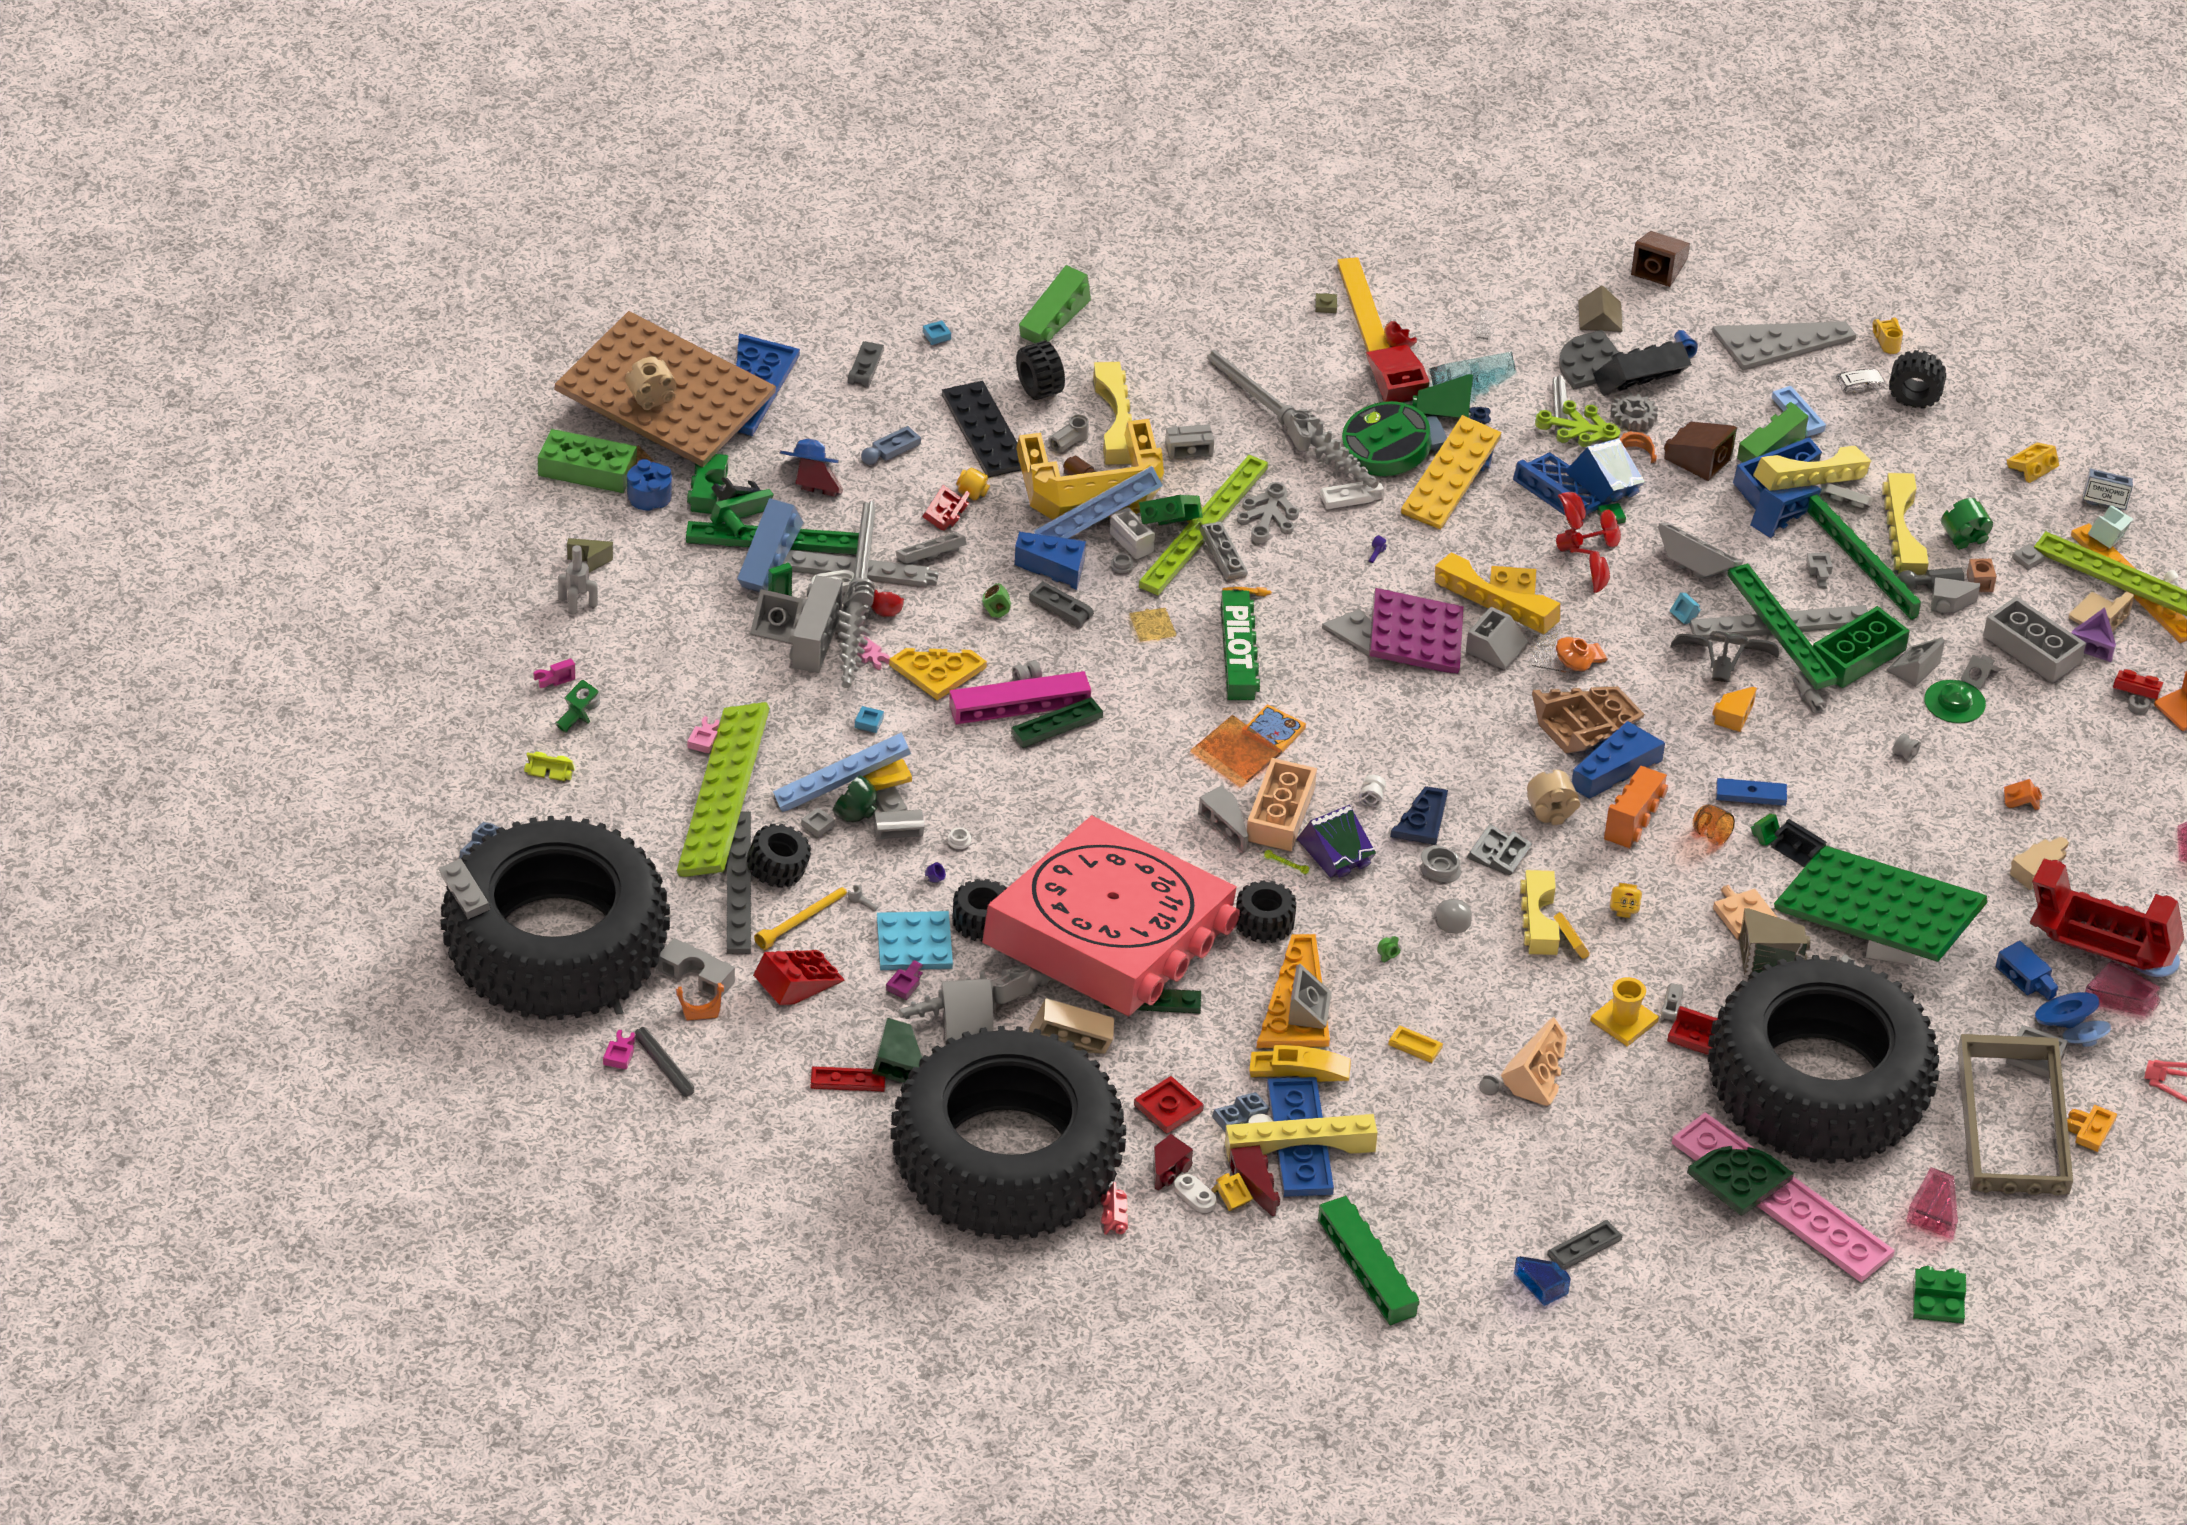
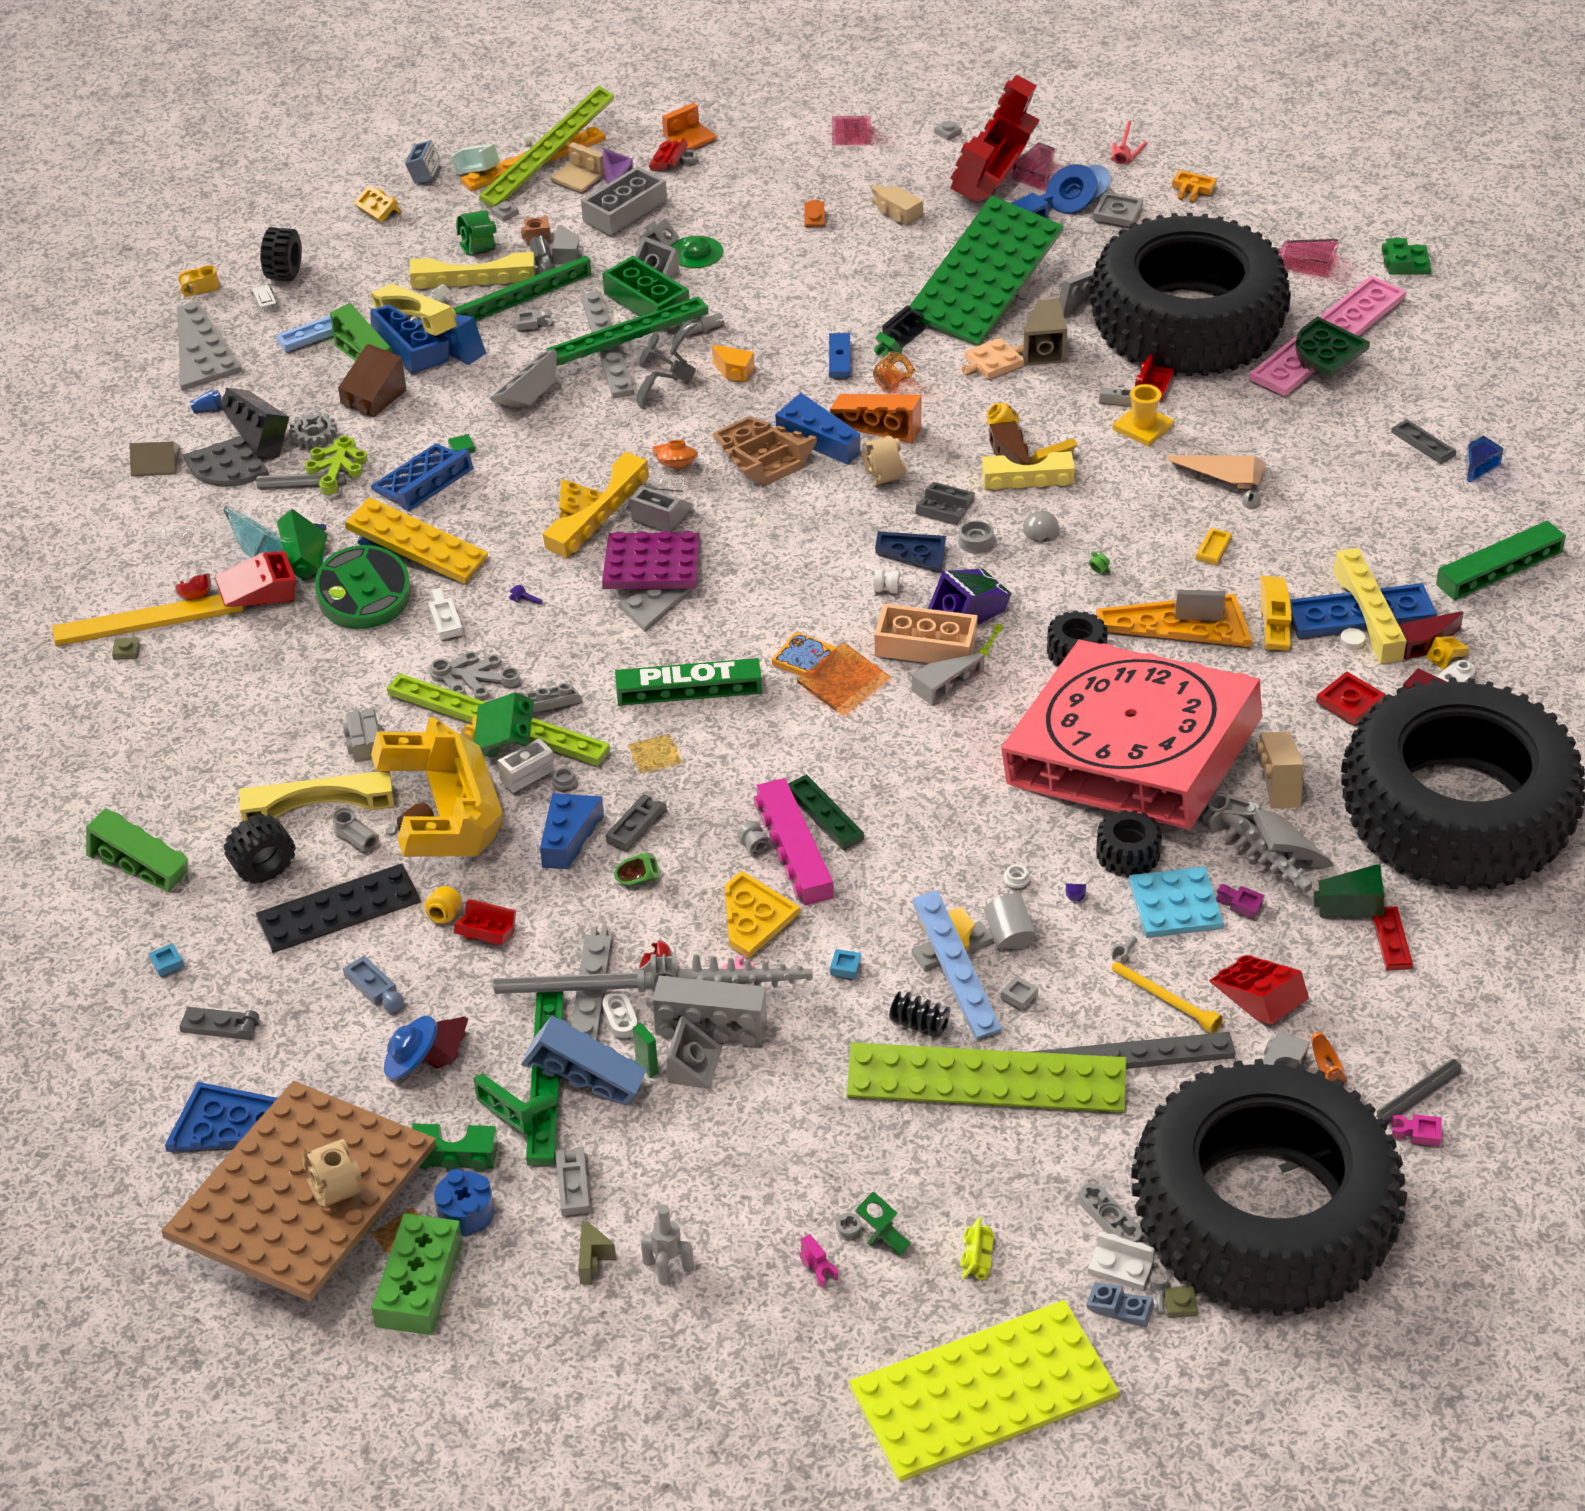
camera: 90 degrees left, 0 degrees up
(421, 759) = (982, 1390): none -> neon yellow plate
(464, 888) = (1305, 1237): light grey plate -> none
(665, 548) = (572, 1182): none -> light grey plate
(703, 738) = (900, 1108): bright pink plate -> none
(731, 491) = (484, 1106): black hinge -> none
(778, 855) = (1092, 1012): black tyre -> none
(799, 754) = (919, 1015): none -> black piece
(857, 801) = (990, 952): dark green cylinder -> none
(931, 548) = (554, 933): light grey plate -> none
(1102, 505) = (505, 781): light blue plate -> none
(1241, 1111) = (1338, 651): sand blue slope -> none
(1258, 591) = (600, 678): light orange piece -> none
(1301, 424) = (335, 652): light grey piece -> none
(1571, 540) = (510, 460): red plant -> none
(1582, 903) = (1008, 441): none -> reddish brown slope
(1606, 471) = (413, 439): blue slope -> none
(1640, 440) = (357, 424): orange helmet -> none
(1659, 258) = (78, 413): reddish brown slope -> none
(1685, 608) = (599, 394): medium azure tile -> none
(1906, 747) = (767, 270): light grey wheel -> none
(2014, 1048) = (1204, 193): dark tan door -> none

